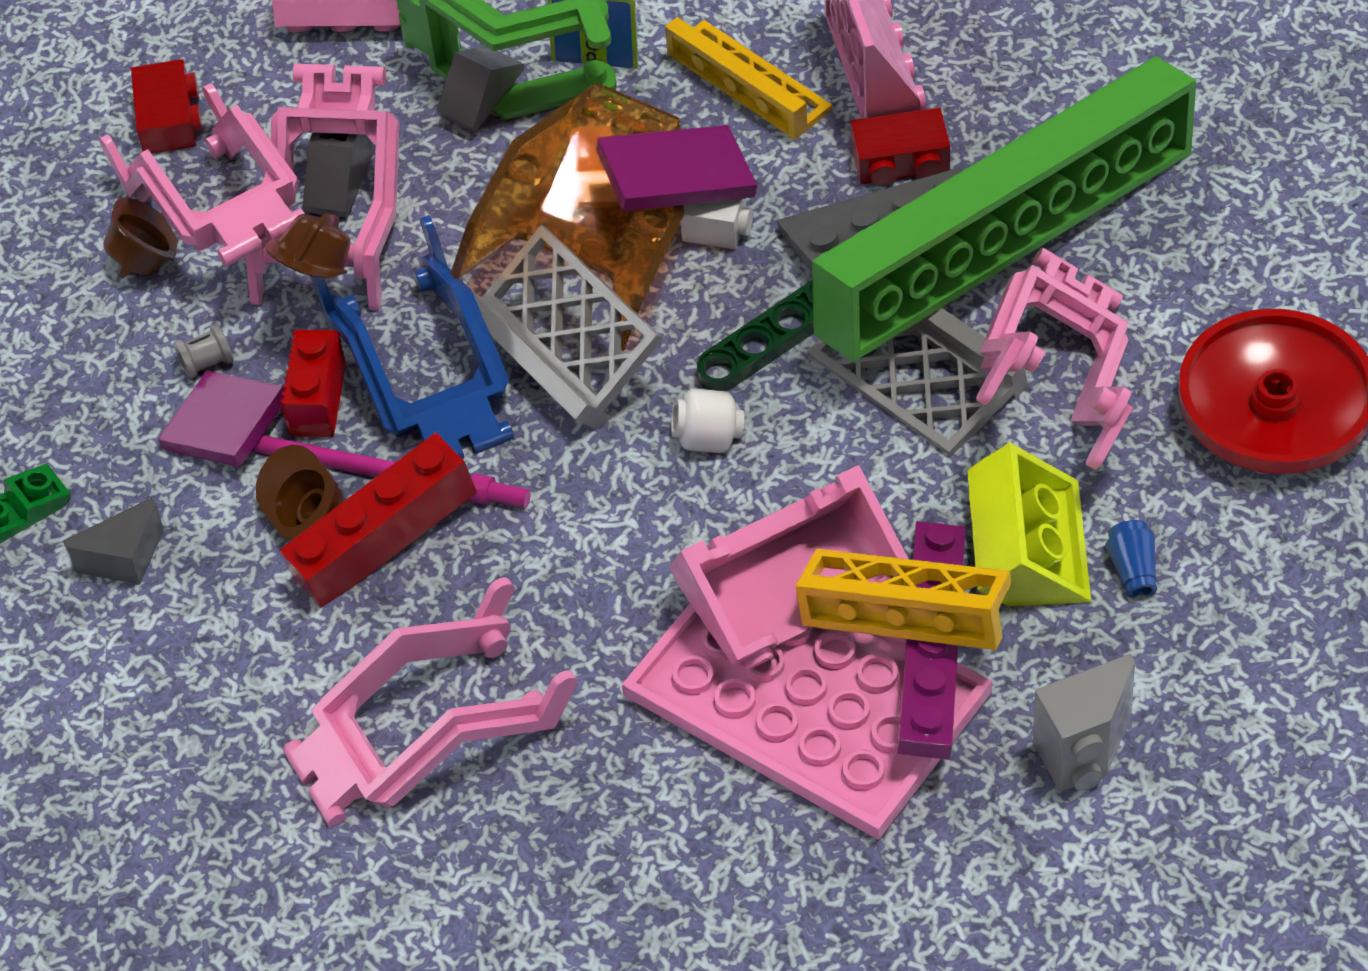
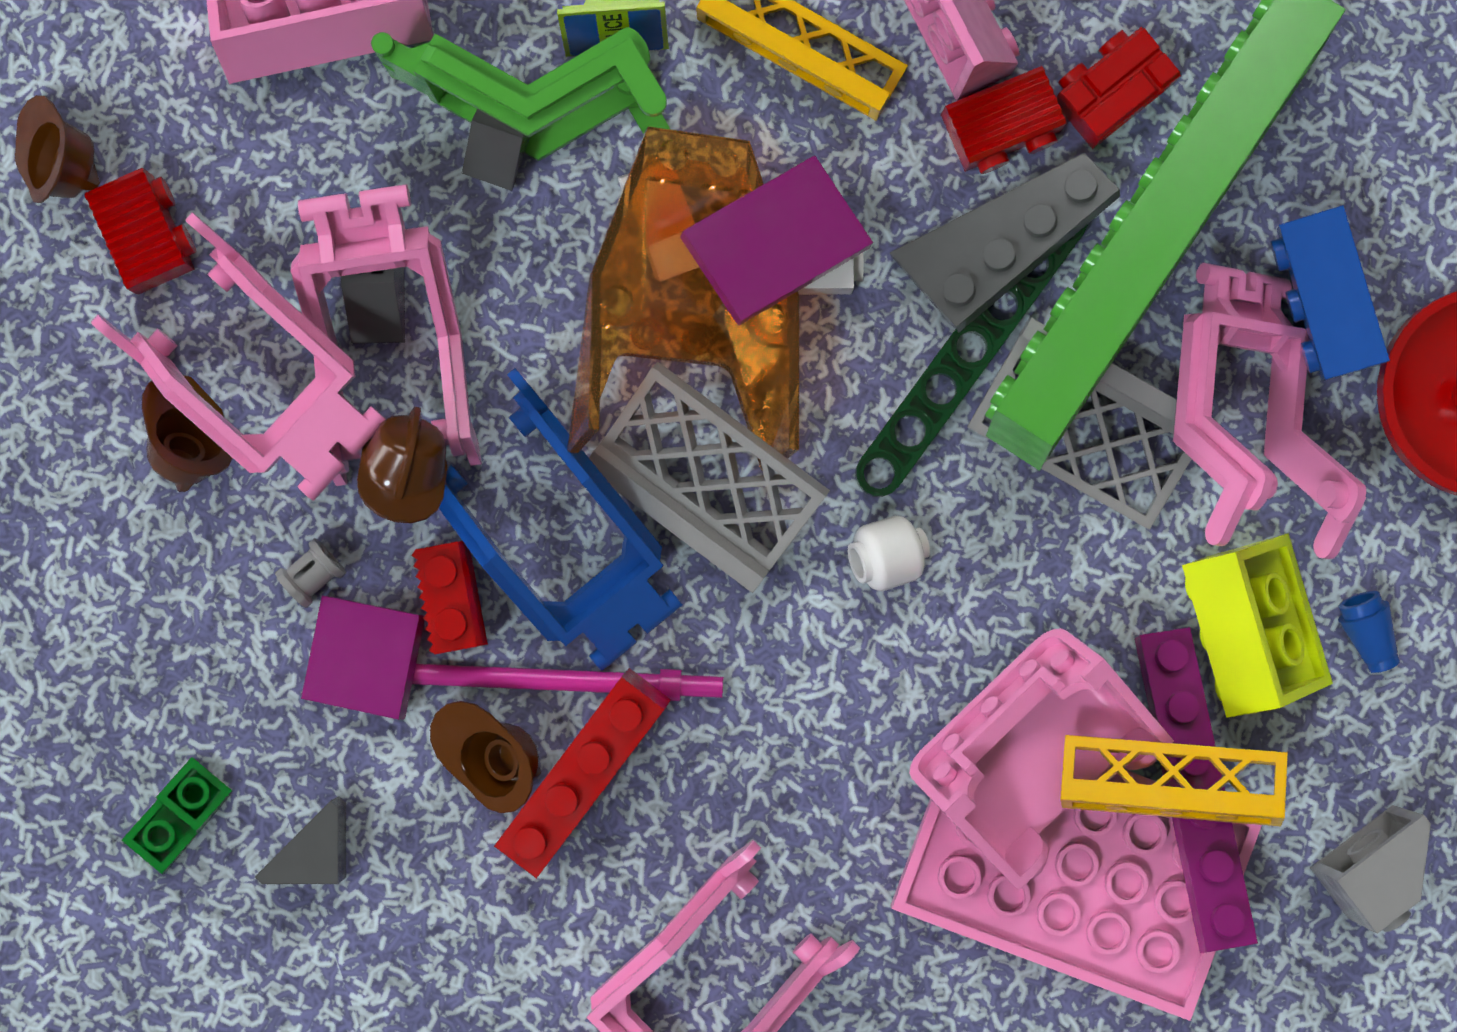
camera: 25 degrees left, 35 degrees up
(119, 46) = (52, 154): none -> reddish brown piece
(983, 134) = (1116, 86): none -> red brick
(1146, 289) = (1329, 294): none -> blue slope

